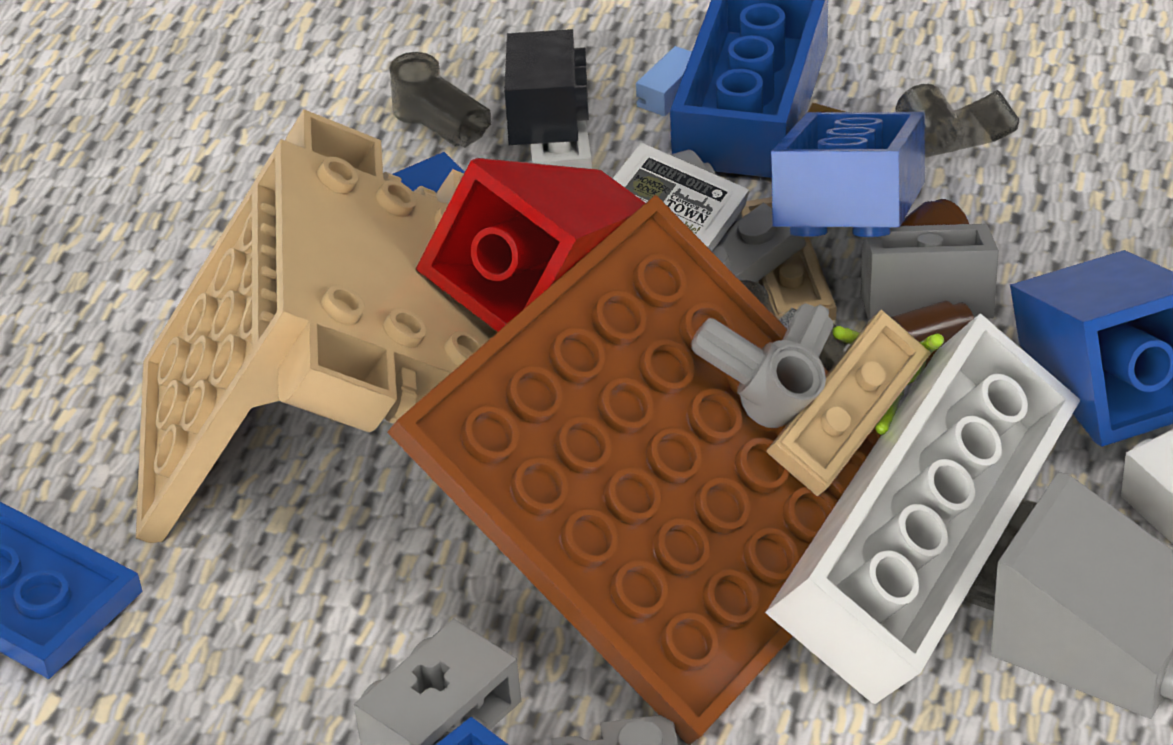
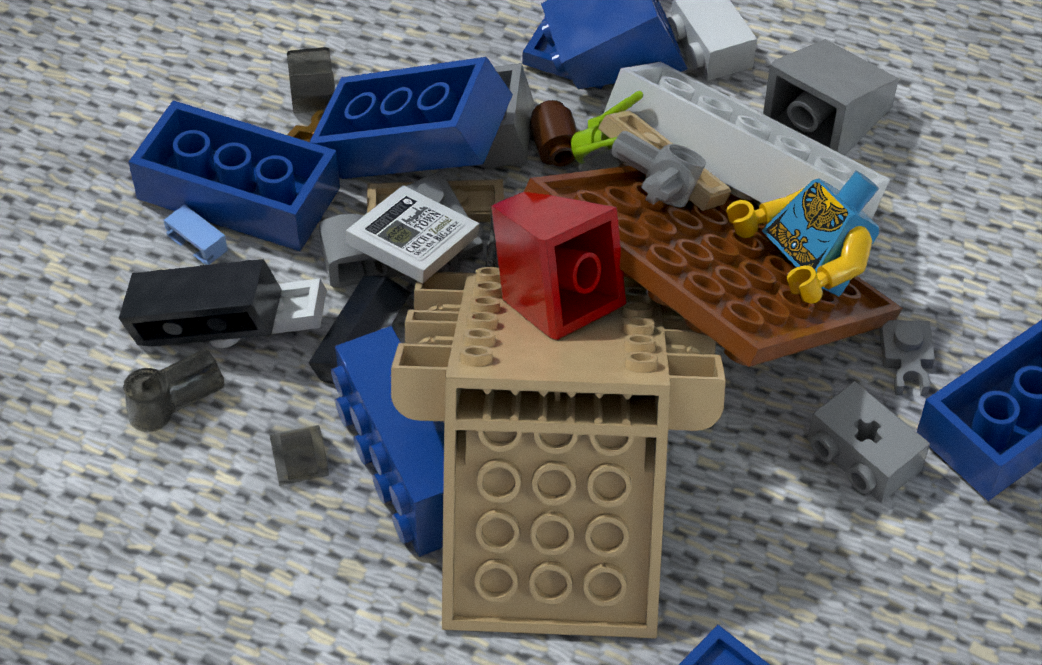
camera: 85 degrees left, 10 degrees up
(711, 560) = (817, 231): none -> torso

